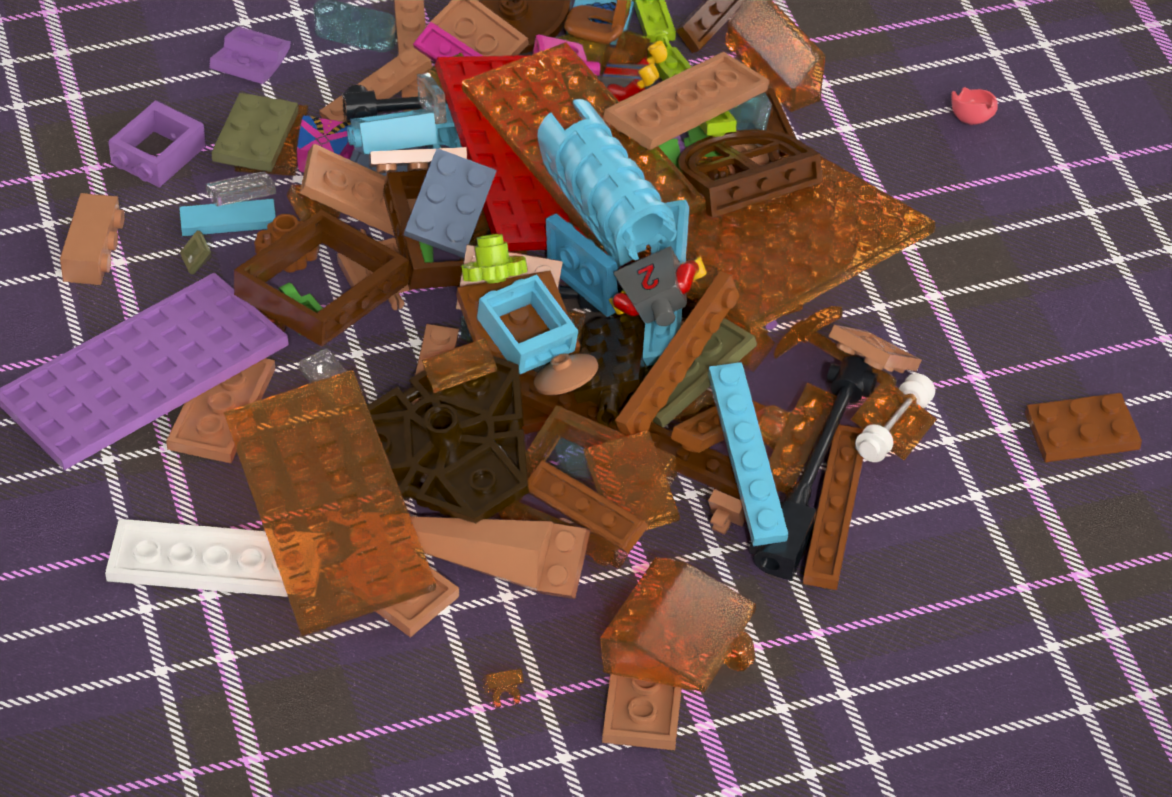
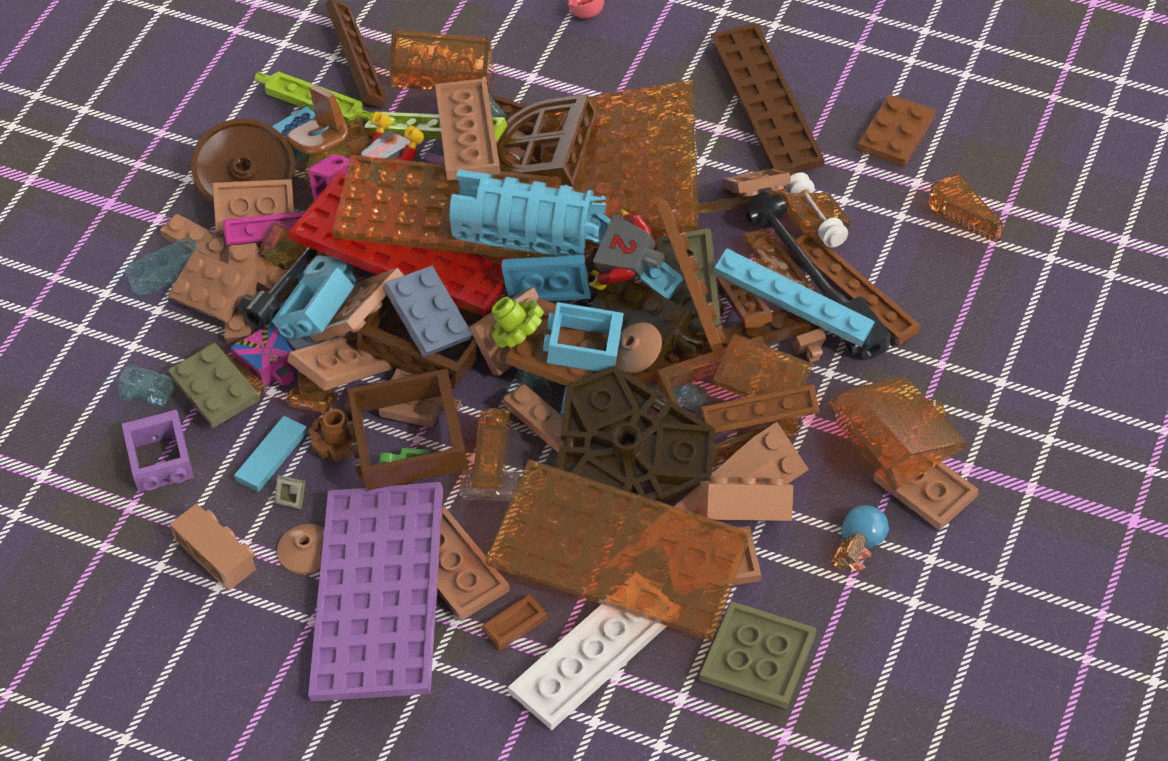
camera: 45 degrees left, 5 degrees up
(144, 295) = (298, 557): none -> nougat dish
(200, 487) = (514, 622): none -> dark orange tile
(217, 95) = (145, 385): none -> clear light blue leg
(240, 188) = (254, 428): clear tile -> none
(250, 55) = (121, 344): medium lavender slope -> none
(320, 681) = (758, 654): none -> olive plate
(358, 62) = (210, 286): none -> nougat plate
(369, 349) = (491, 448): none -> clear orange slope
(431, 97) = (309, 260): clear tile -> none
(459, 365) = (583, 398): clear orange plate -> none
(476, 561) = (746, 499): none -> nougat brick
(549, 679) = (868, 522): none -> dark azure hair
(1004, 306) = (767, 100): none -> reddish brown plate
(1031, 530) = (963, 207): none -> clear orange slope

